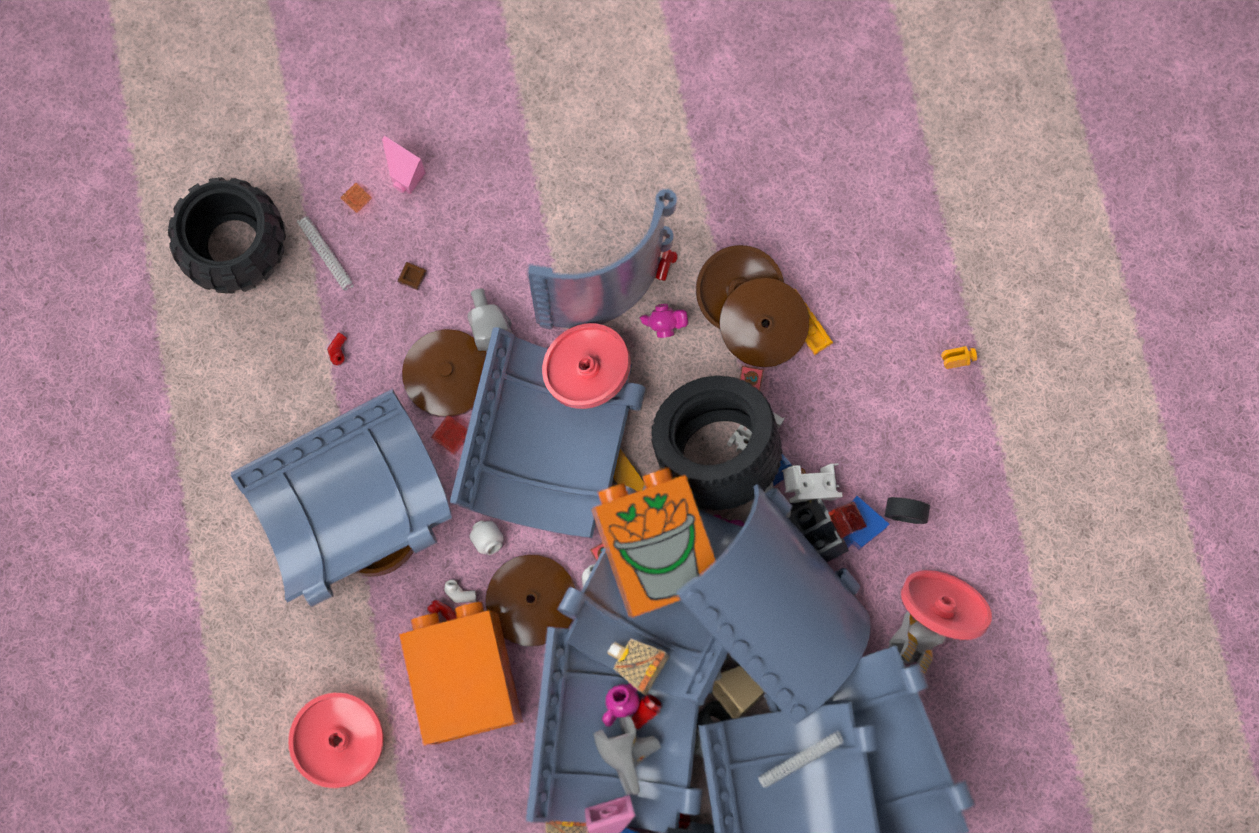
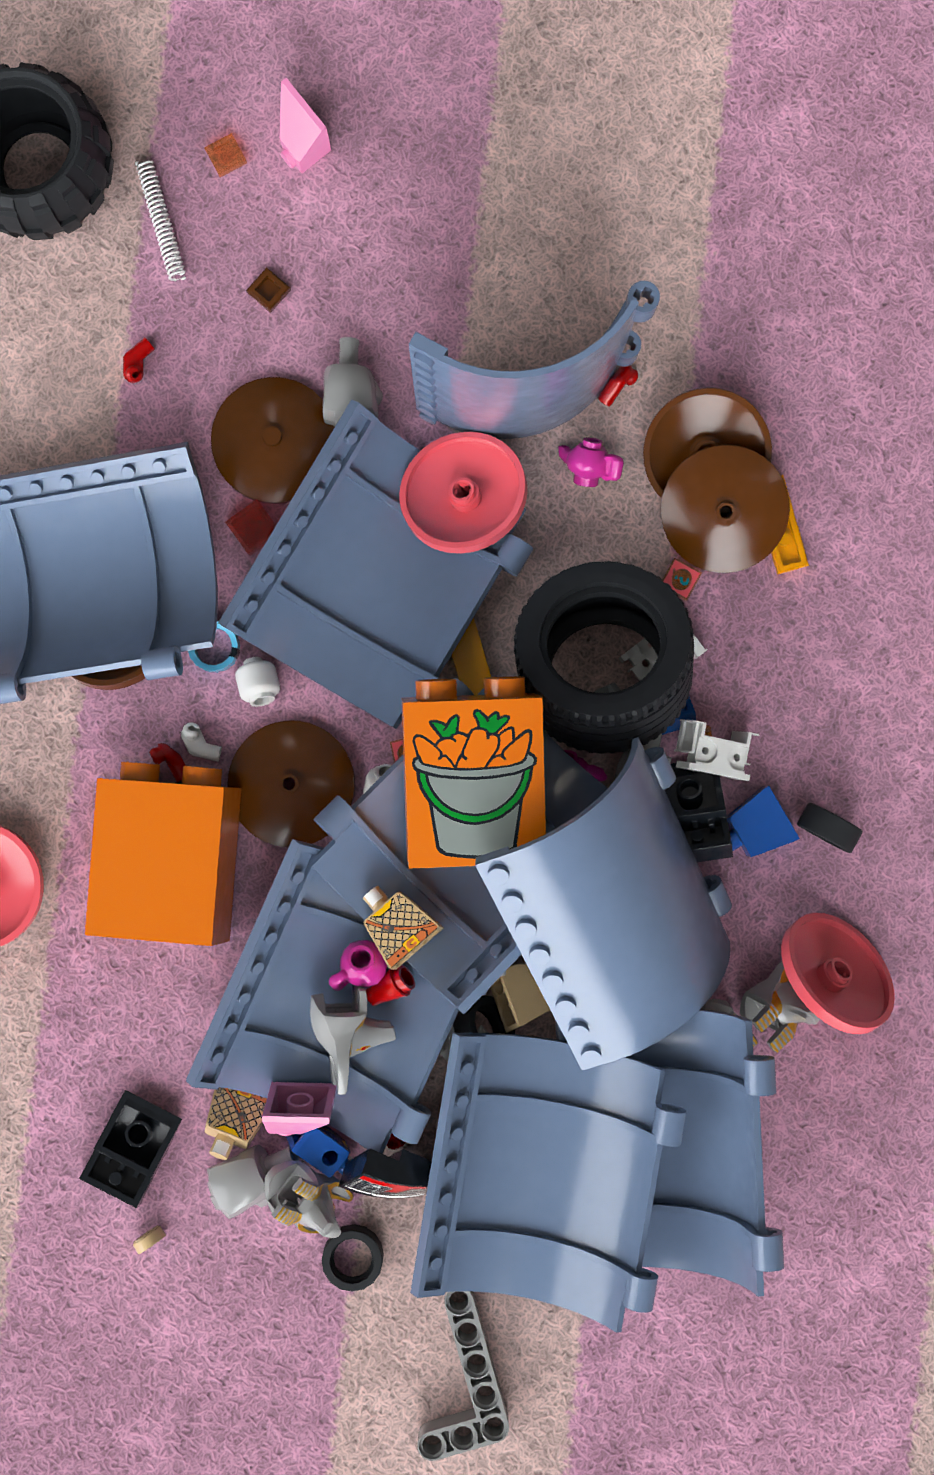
camera: 15 degrees right, 10 degrees up
(462, 531) = (235, 651): none -> medium azure piece
(800, 758) = (548, 1121): white piece -> none
(847, 519) = (745, 817): clear red piece -> none

